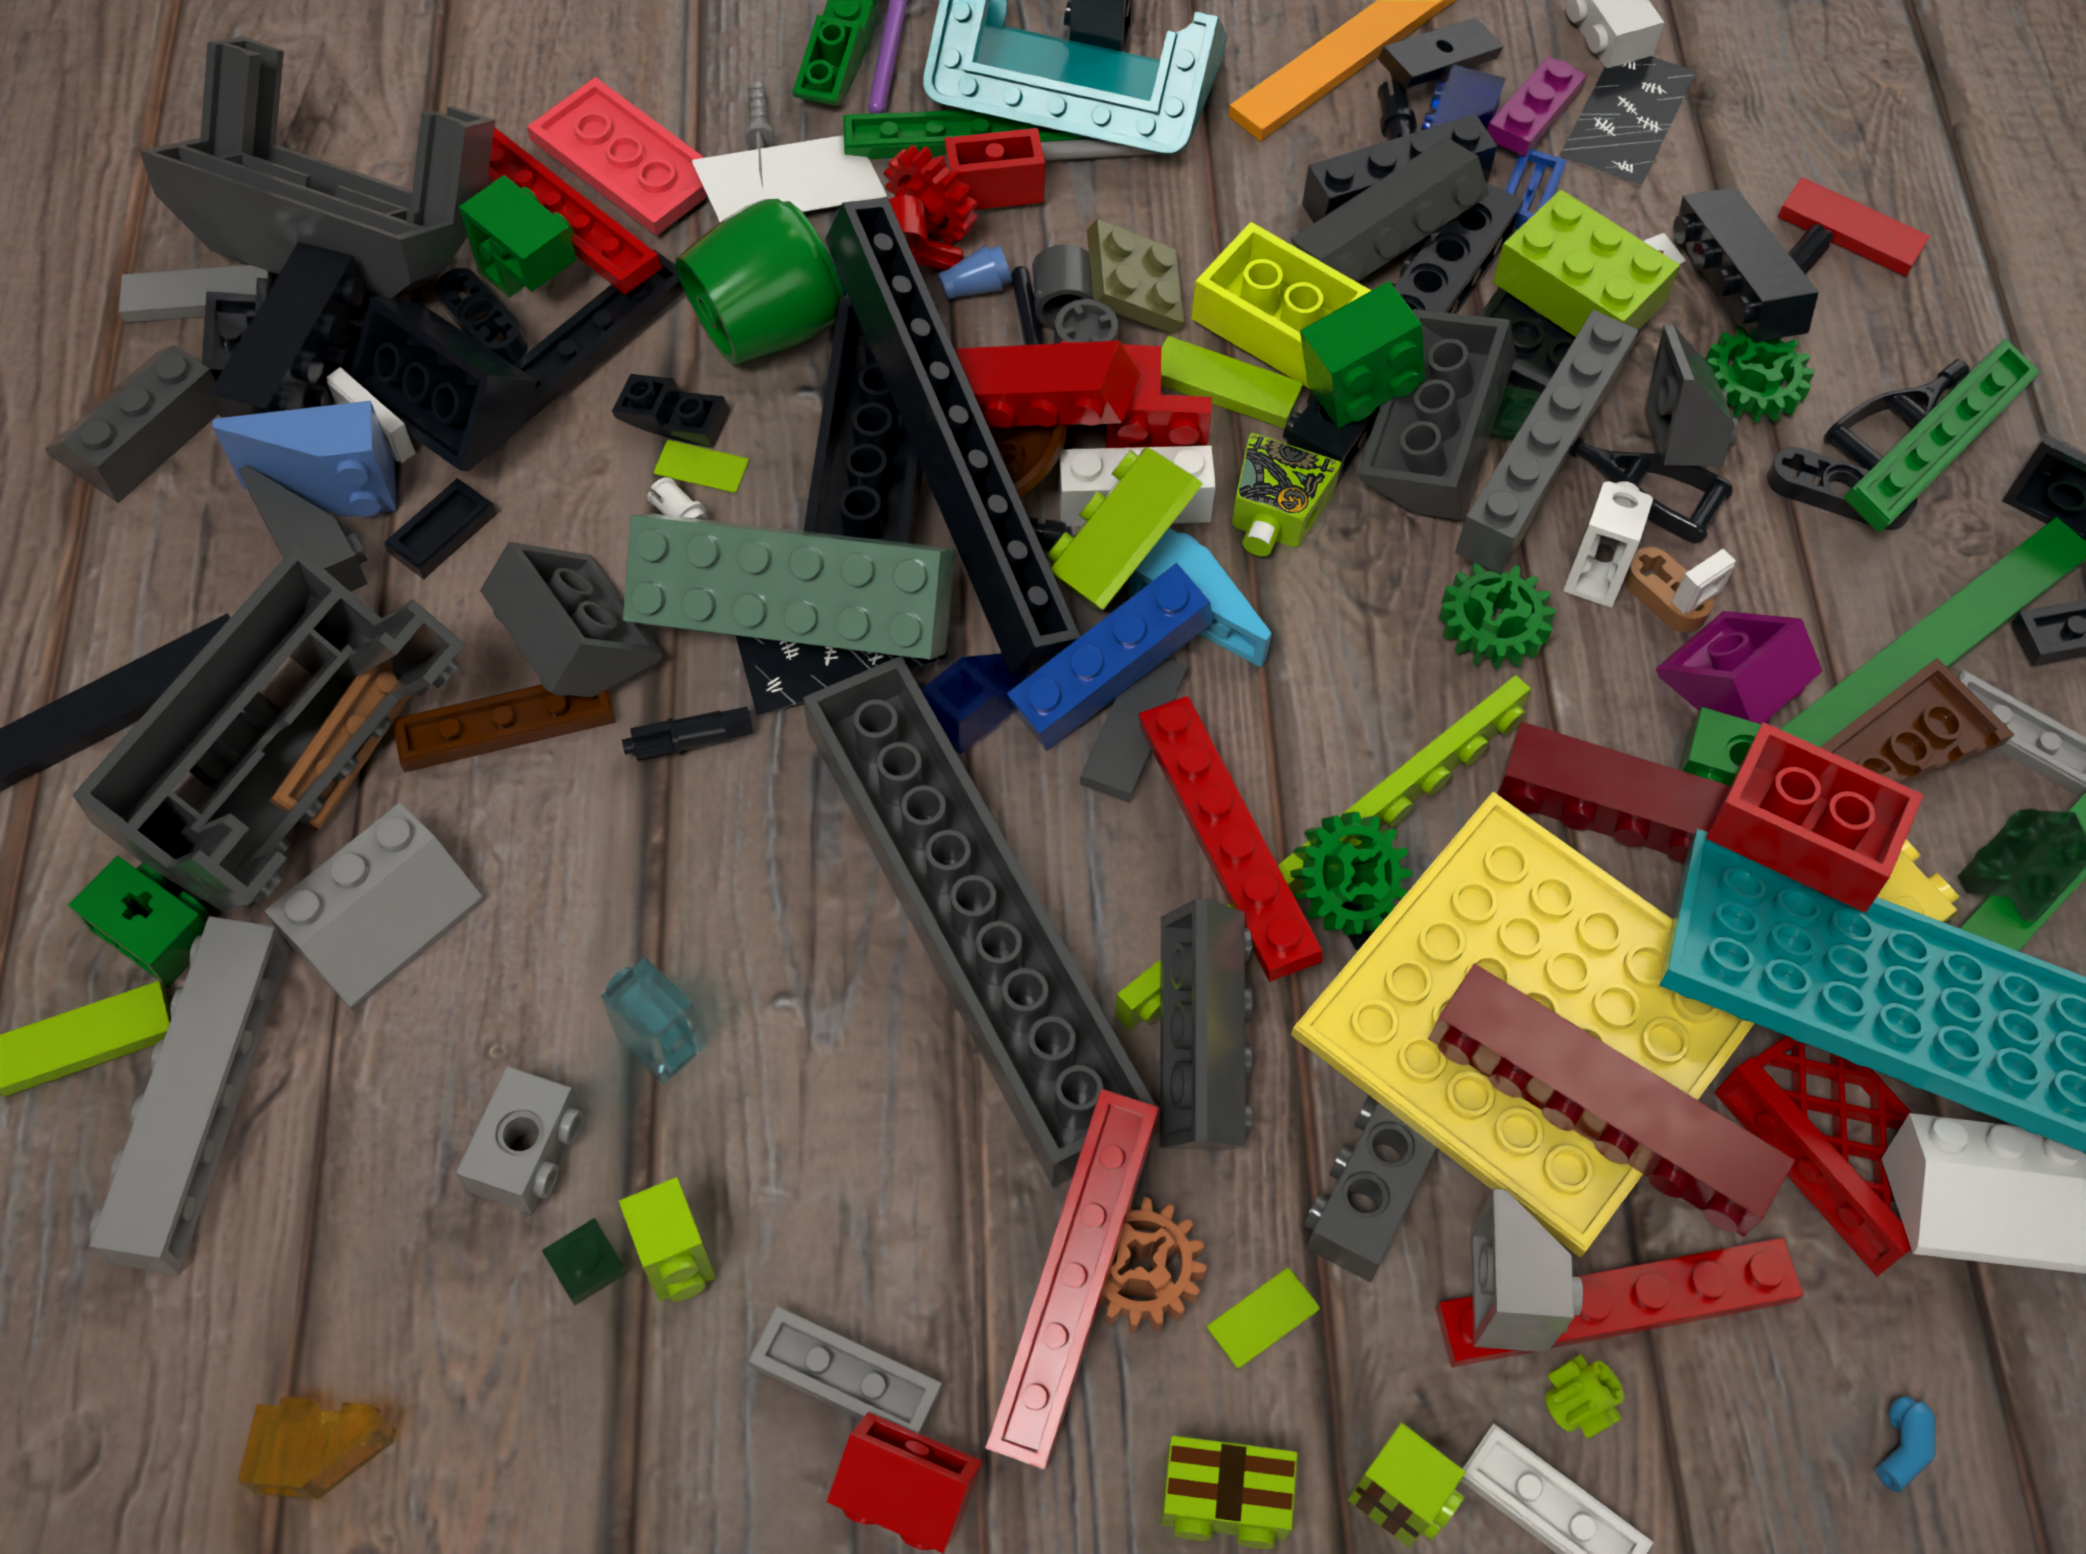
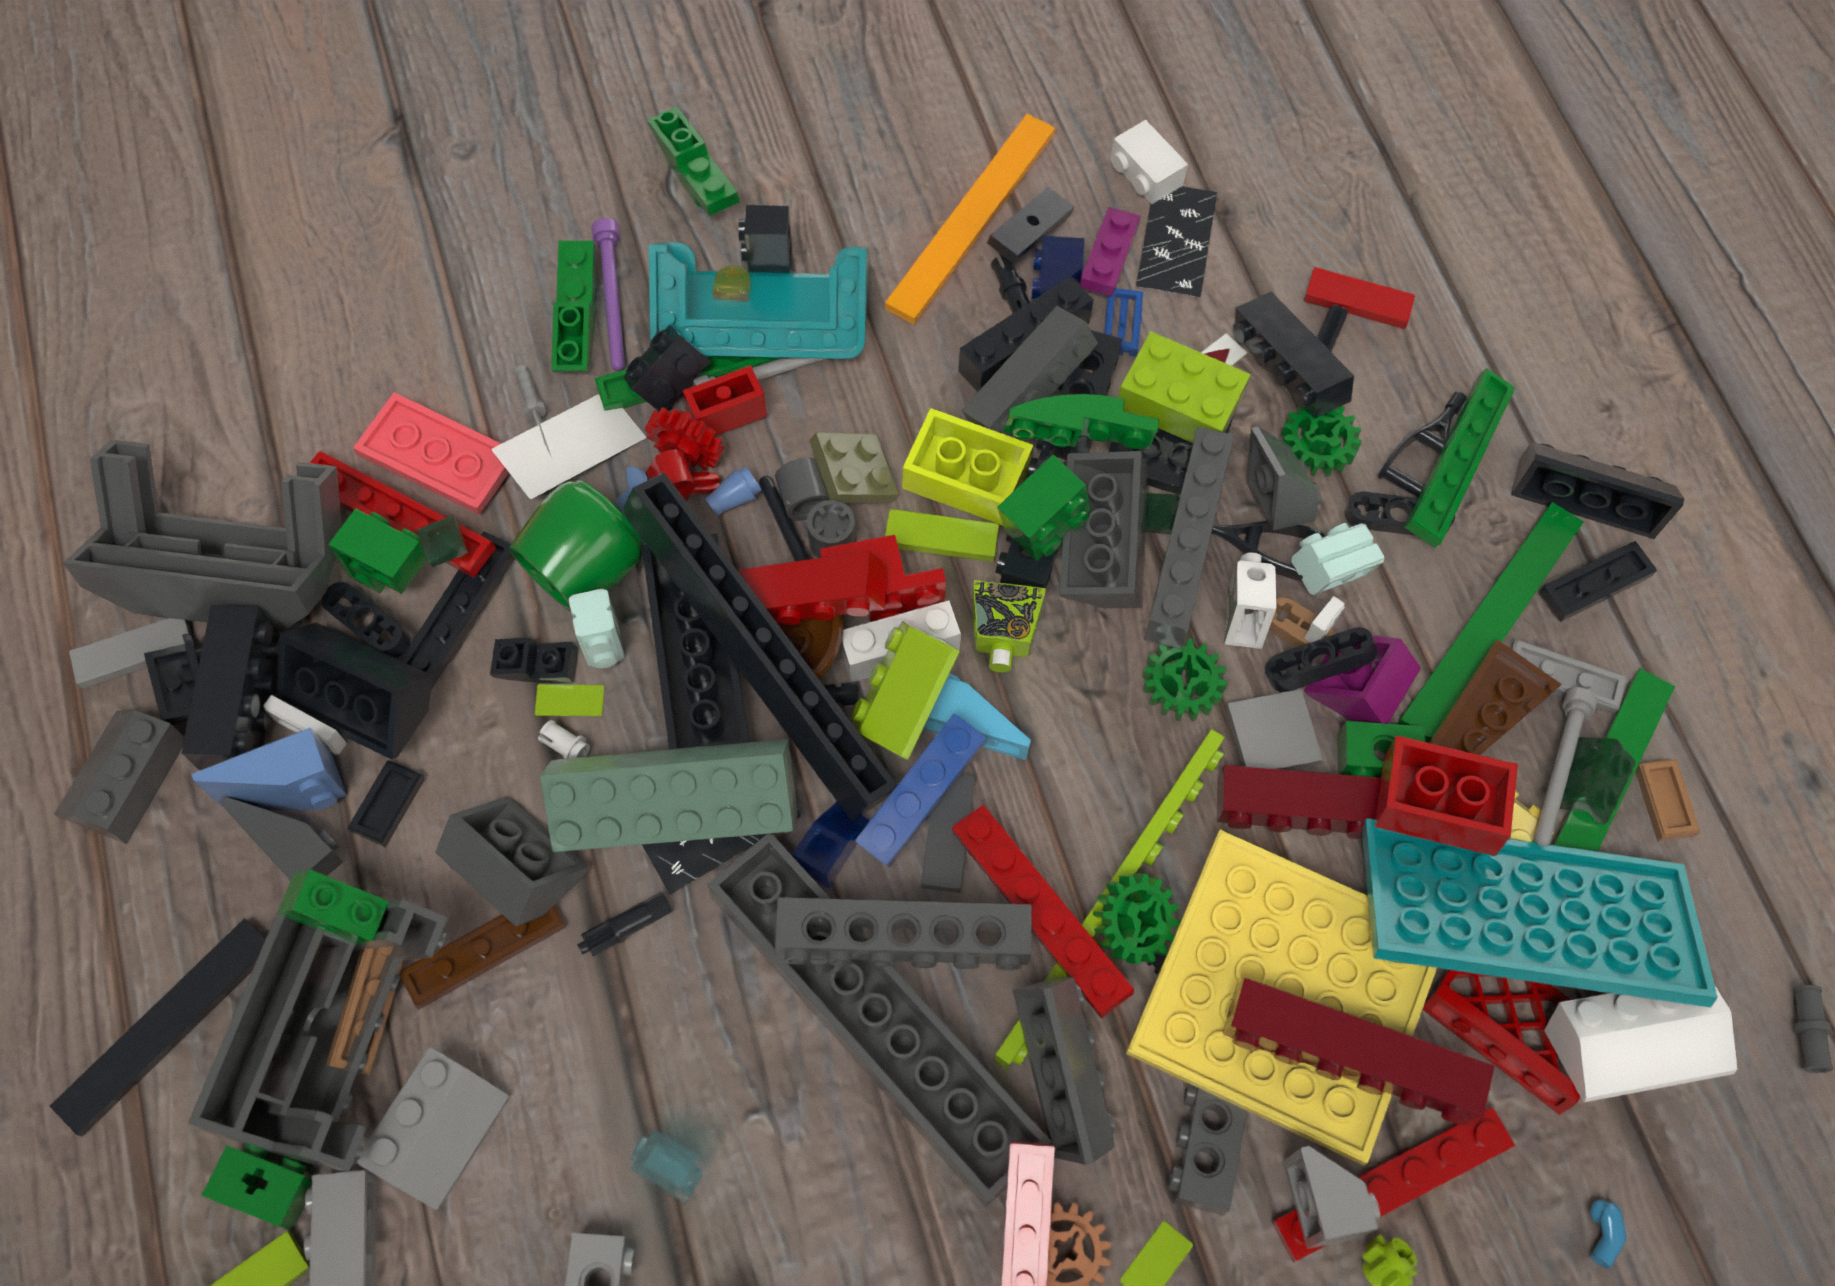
camera: 15 degrees left, 5 degrees up
(329, 596) = (332, 907): none -> green brick
(598, 238) = (442, 541): none -> clear green plate
(757, 381) = (597, 628): none -> light aqua brick
(933, 112) = (665, 368): none -> black bracket
(1018, 782) = (924, 919): none -> dark grey brick
(1043, 45) = (732, 284): none -> clear yellow tile
(1441, 267) = (1068, 416): none -> green slope
(1603, 703) = (1274, 732): none -> light grey tile
(1718, 622) = (1335, 665): none -> black beam
(1741, 513) = (1337, 557): none -> light aqua brick
(2030, 771) = (1578, 707): none -> light grey piece

